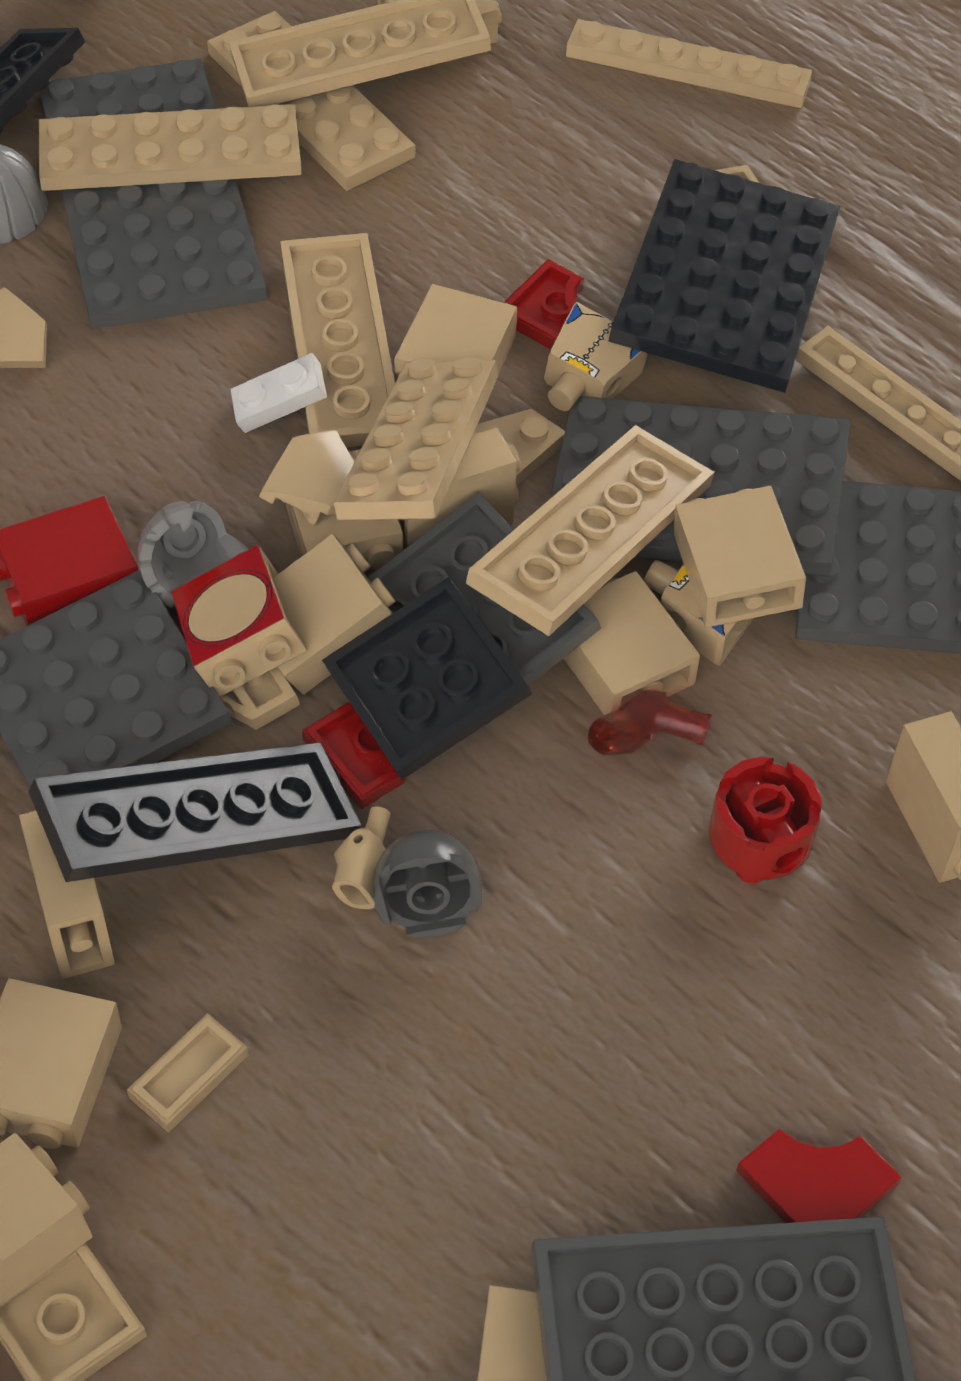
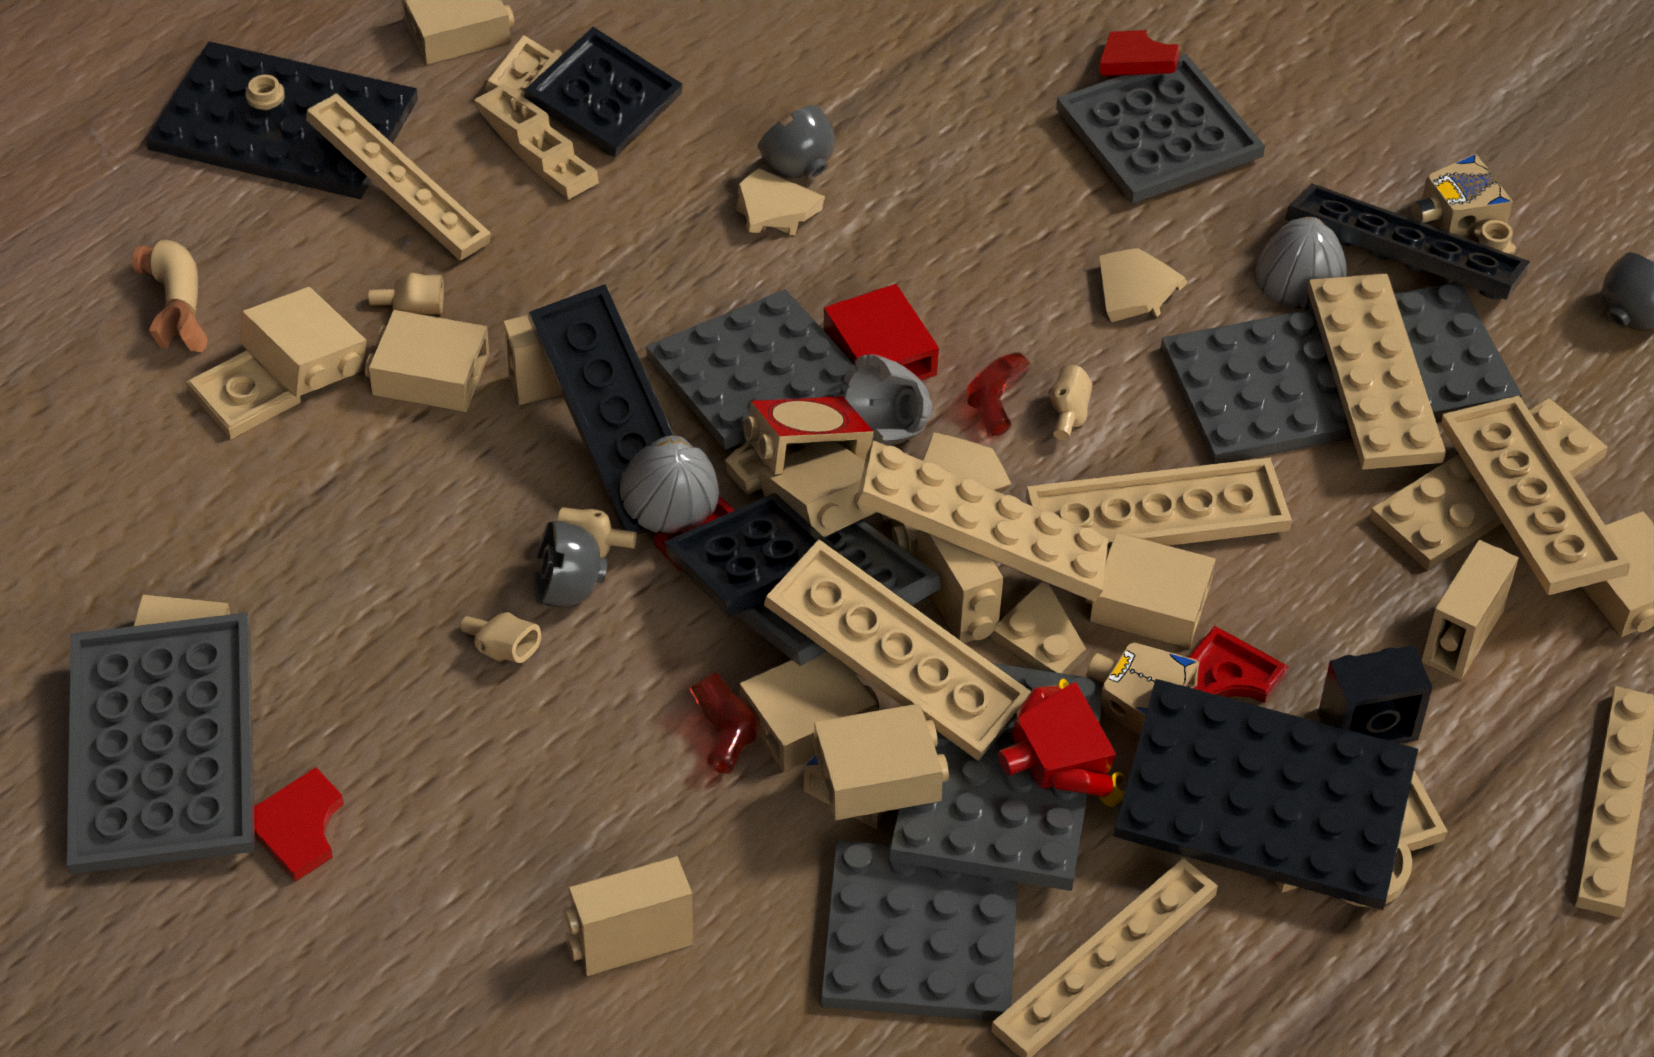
camera: 90 degrees right, 5 degrees down
(152, 466) = (989, 385): none -> clear red arm
(182, 397) = (1070, 399): none -> tan piece
(187, 1072) = (423, 446): tan tile -> none
(278, 393) = (1079, 462): white plate -> none
(325, 759) = (669, 486): none -> light grey hair
(498, 109) = (1469, 609): none -> tan brick
(526, 956) = (504, 637): none -> tan piece
(611, 186) = (1377, 694): none -> black brick
(696, 401) = (1062, 744): none -> red torso
(764, 819) = (618, 790): red brick -> none

